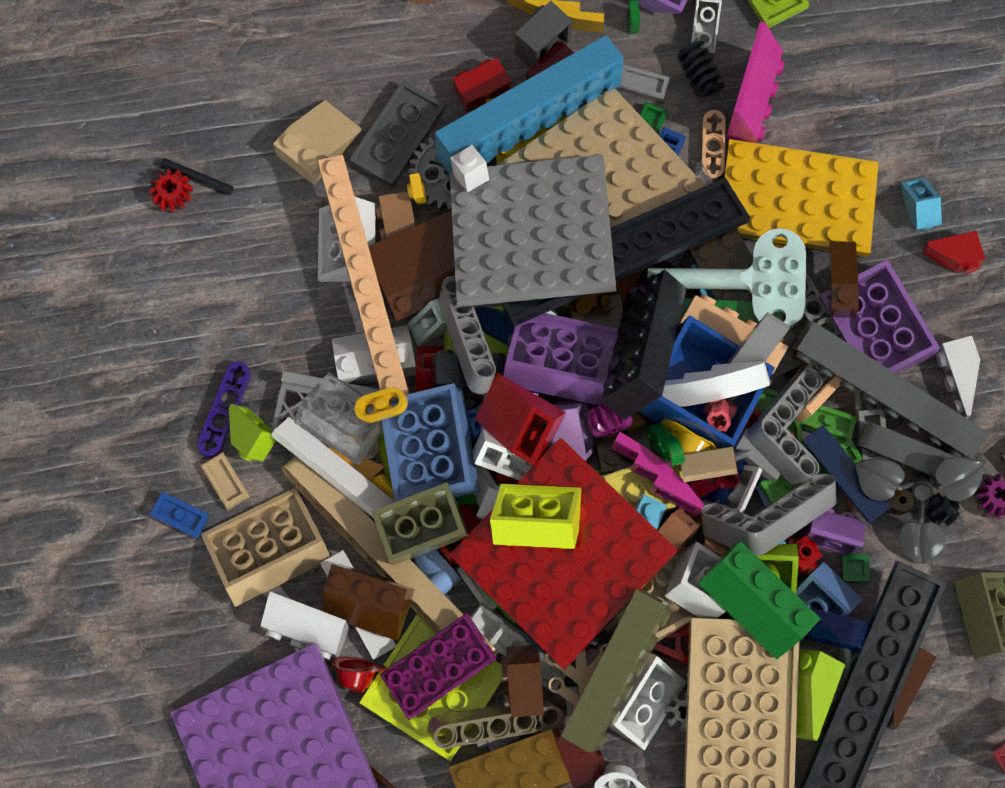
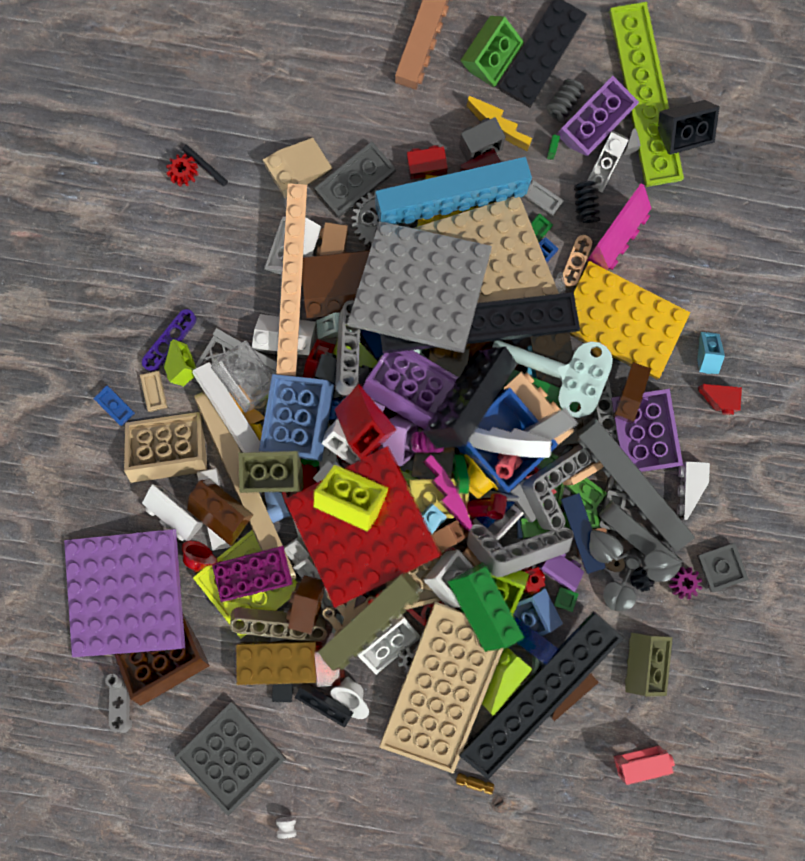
camera: 20 degrees right, 10 degrees up
(382, 405) = (273, 378): yellow plate -> none
(417, 189) = (353, 226): yellow plate -> none
(469, 168) = (391, 226): white brick -> none
(709, 464) = (485, 499): tan tile -> none

